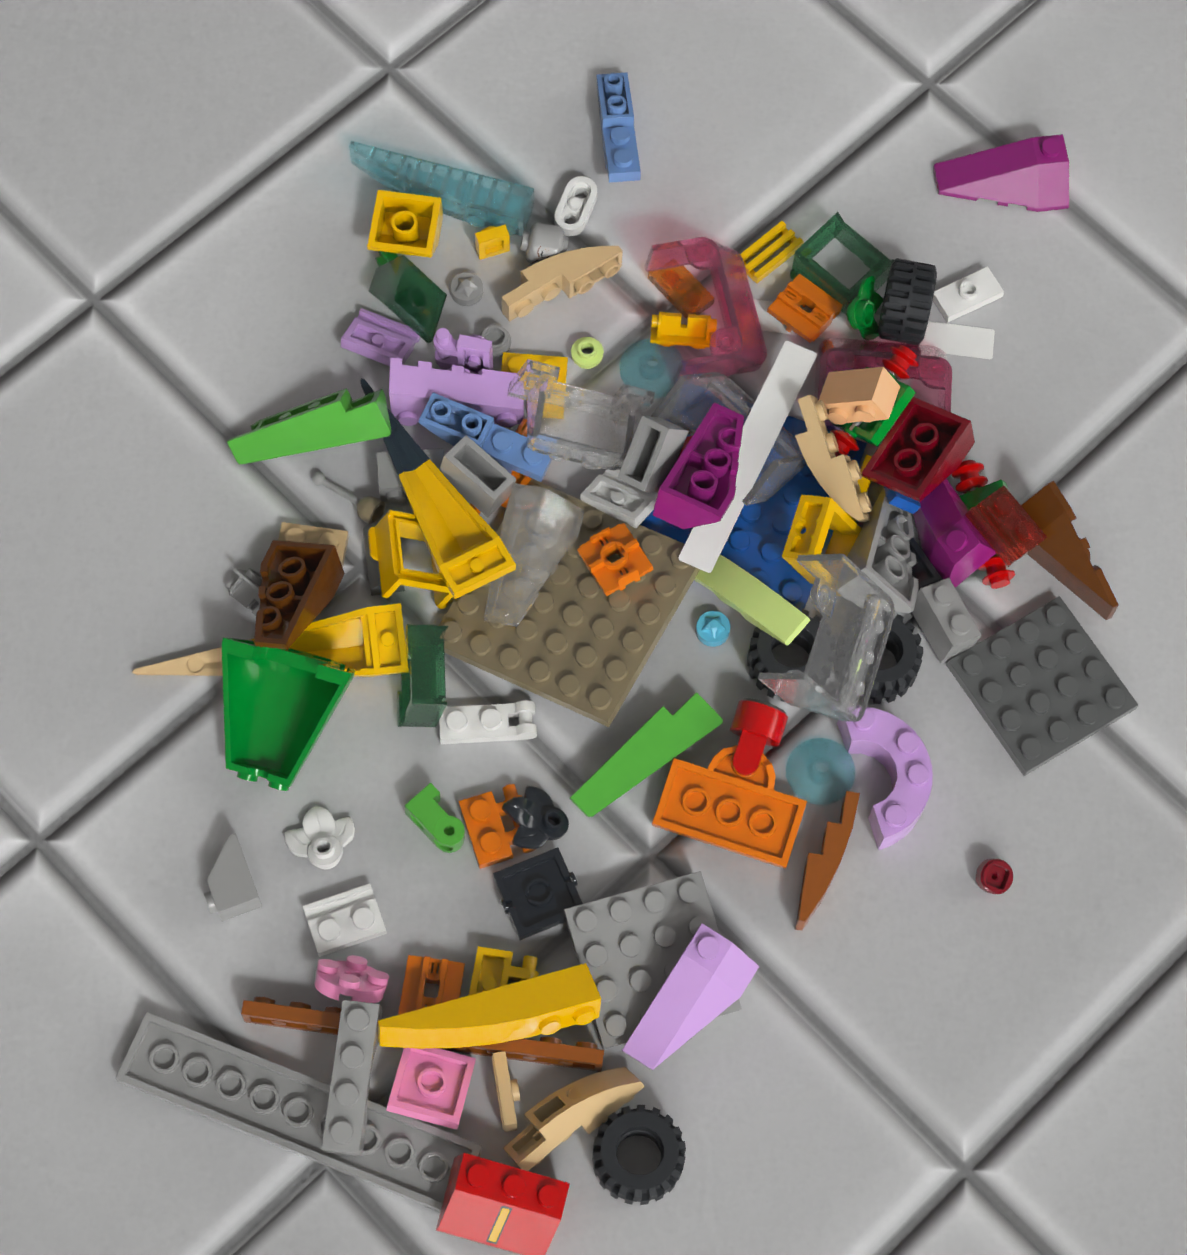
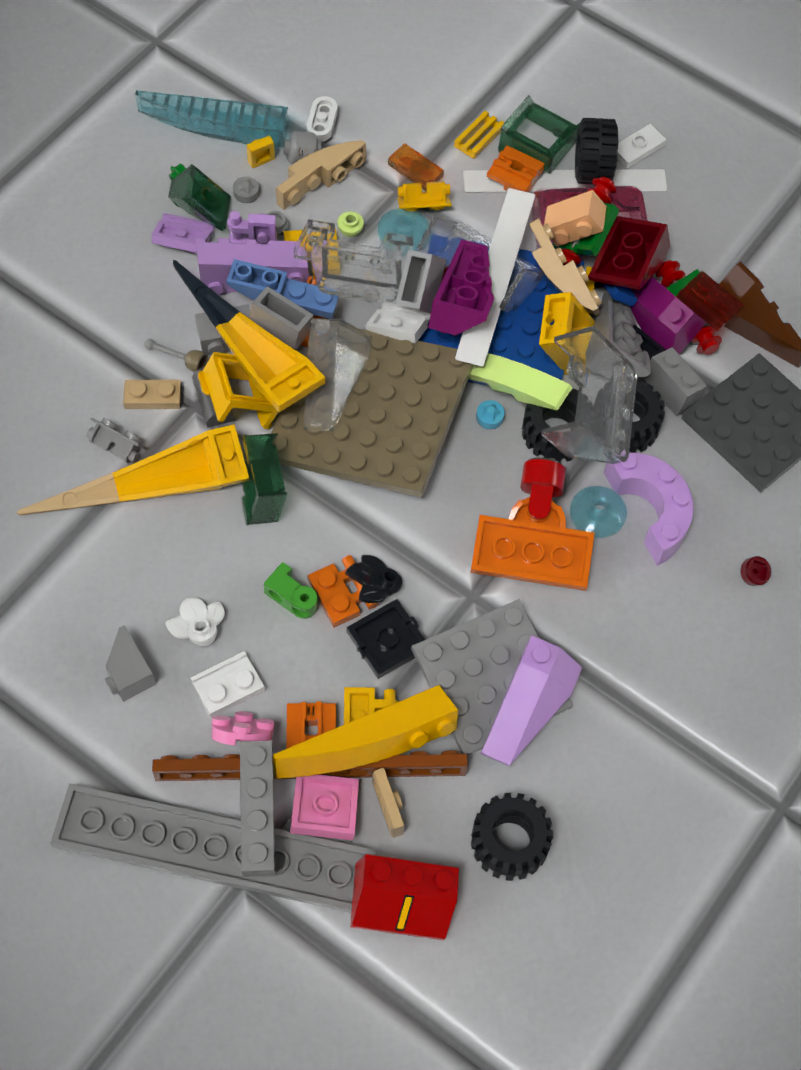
camera: 10 degrees left, 5 degrees down
(276, 708) = (143, 520): green cone -> none
(294, 590) = (144, 424): reddish brown wedge -> none
(314, 426) = (140, 302): bright green wedge -> none
(406, 224) = (189, 143): yellow slope -> none
(487, 723) = (320, 511): white plate -> none
(578, 1104) = (452, 803): tan slope -> none
(618, 127) = (344, 59): medium blue slope -> none
(620, 573) = (403, 379): orange piece -> none
(645, 752) = (456, 513): bright green wedge -> none
(740, 343) = (467, 196): clear pink windscreen -> none
(822, 868) = (616, 583): dark orange slope -> none
(863, 309) = (563, 162): green plate -> none
(1017, 173) = (663, 54): magenta wedge -> none

